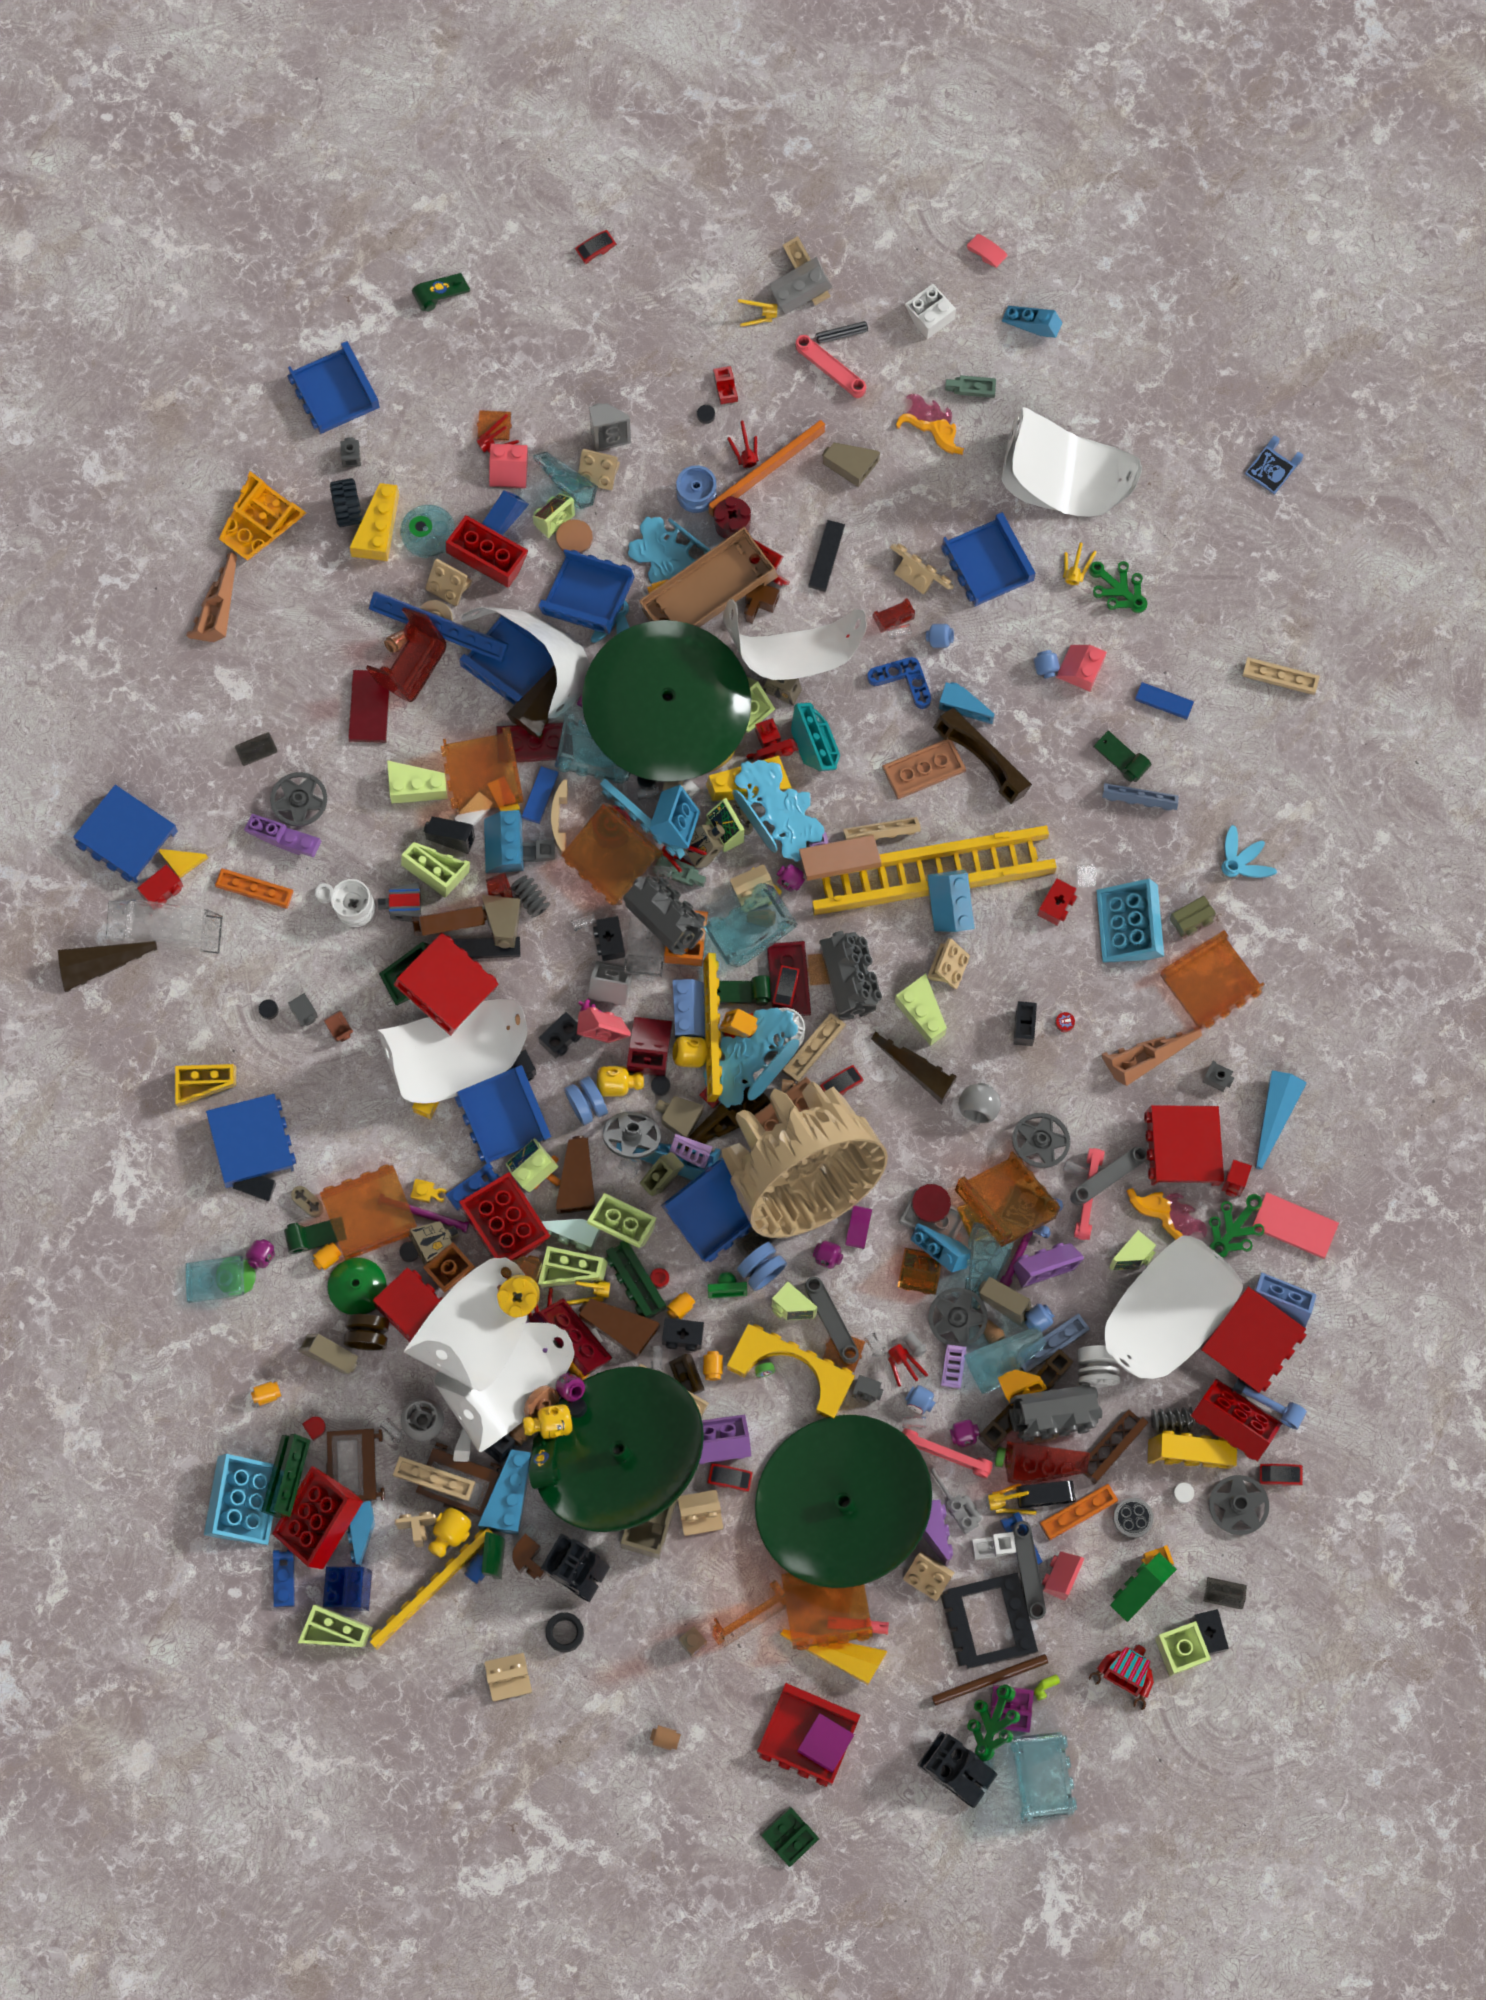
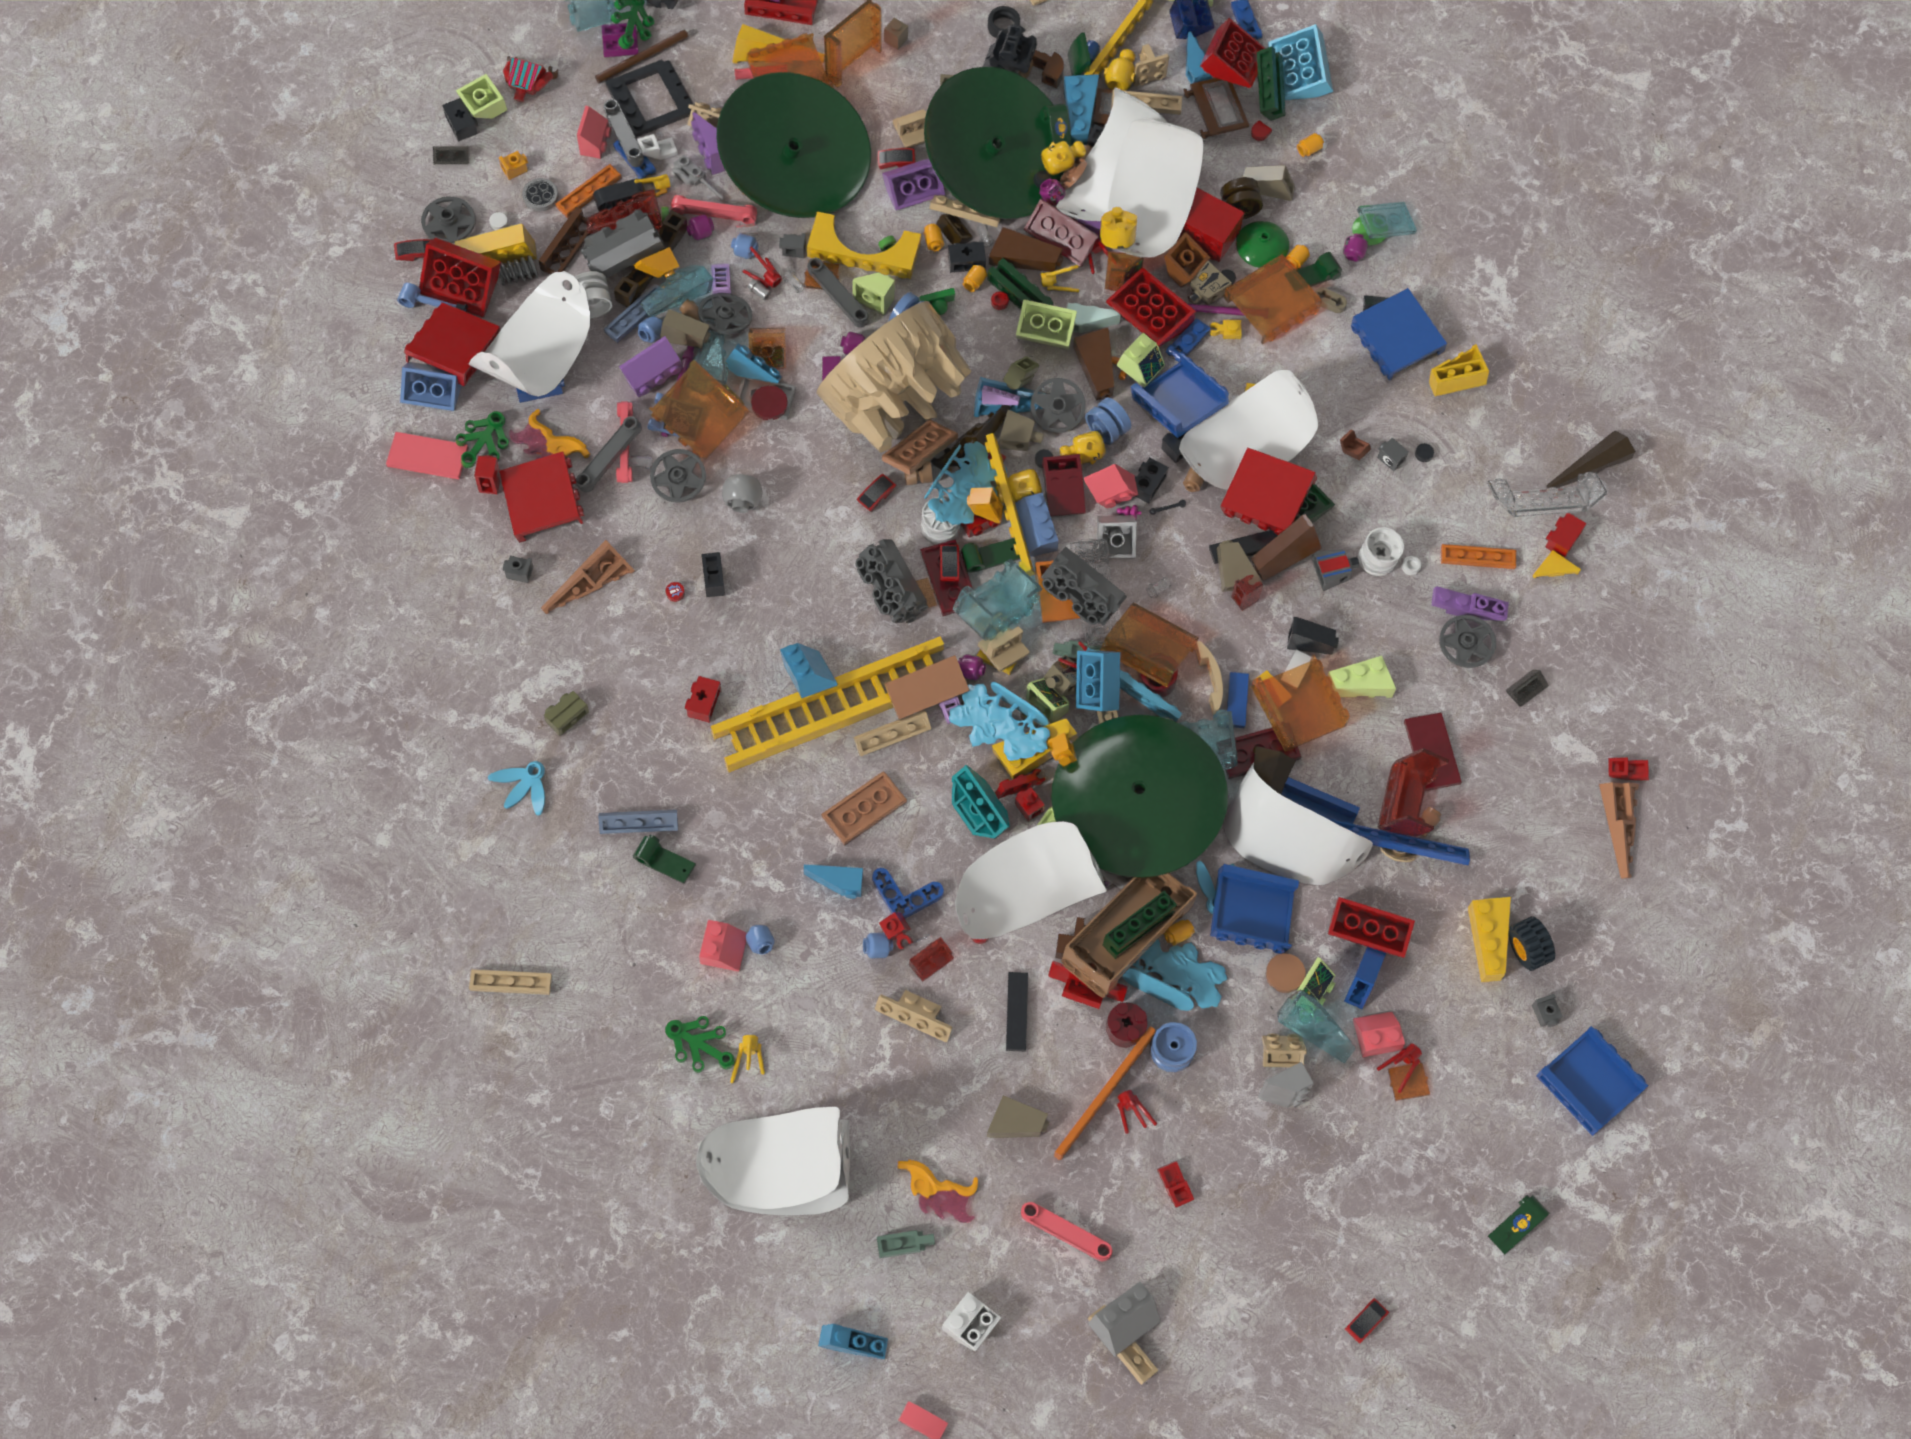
camera: 165 degrees right, 5 degrees down
(124, 833) = (1618, 576): blue panel -> none
(189, 650) = (1628, 769): none -> red slope
(258, 518) = (1613, 918): light orange wedge -> none
(427, 530) = (1438, 946): clear light blue tile -> none
(434, 869) = (1315, 602): yellowish green wedge -> none
(447, 582) = (1398, 892): tan bracket -> none
(503, 842) = (1256, 643): dark azure slope -> none
(530, 897) = (1214, 597): dark grey piece -> none
(533, 1008) = (1182, 503): none -> black hinge
(538, 851) = (1225, 645): dark grey slope -> none
(567, 1267) = (1079, 285): yellowish green wedge -> none
(609, 927) = (1129, 575): black brick -> none
(700, 581) = (1139, 924): none -> dark green brick
(706, 414) = (1187, 1145): black tile -> none
(708, 1212) = (979, 349): blue panel -> none
(727, 755) = (1062, 749): none -> light orange brick
(769, 310) = (1152, 1282): yellow plant -> none
(814, 1047) = (909, 517): tan plate -> none
(841, 332) = (1064, 1278): black axle -> none
(921, 643) = (895, 928): none -> red brick
(922, 1009) = (815, 569): yellowish green wedge -> none
(923, 1072) = (785, 504): dark brown wedge -> none
(949, 964) = (798, 617): tan bracket -> none
(956, 728) = (771, 803): dark brown arch -> none
(988, 560) = (845, 1042): blue panel -> none
(1046, 1683) = (597, 55): lime arm -> none
(1086, 875) = (679, 734): clear slope -> none
(1130, 922) = (627, 694): medium azure slope -> none
(1134, 1254) = (574, 391): yellowish green slope -> none
(1142, 1587) = (521, 133): green wedge -> none
(1164, 700) = (630, 931): blue tile -> none
(1211, 981) = (536, 656): clear orange panel -> none
(1271, 468) = (552, 1223): flag -> none
(1281, 1099) = (456, 558): dark azure wedge -> none

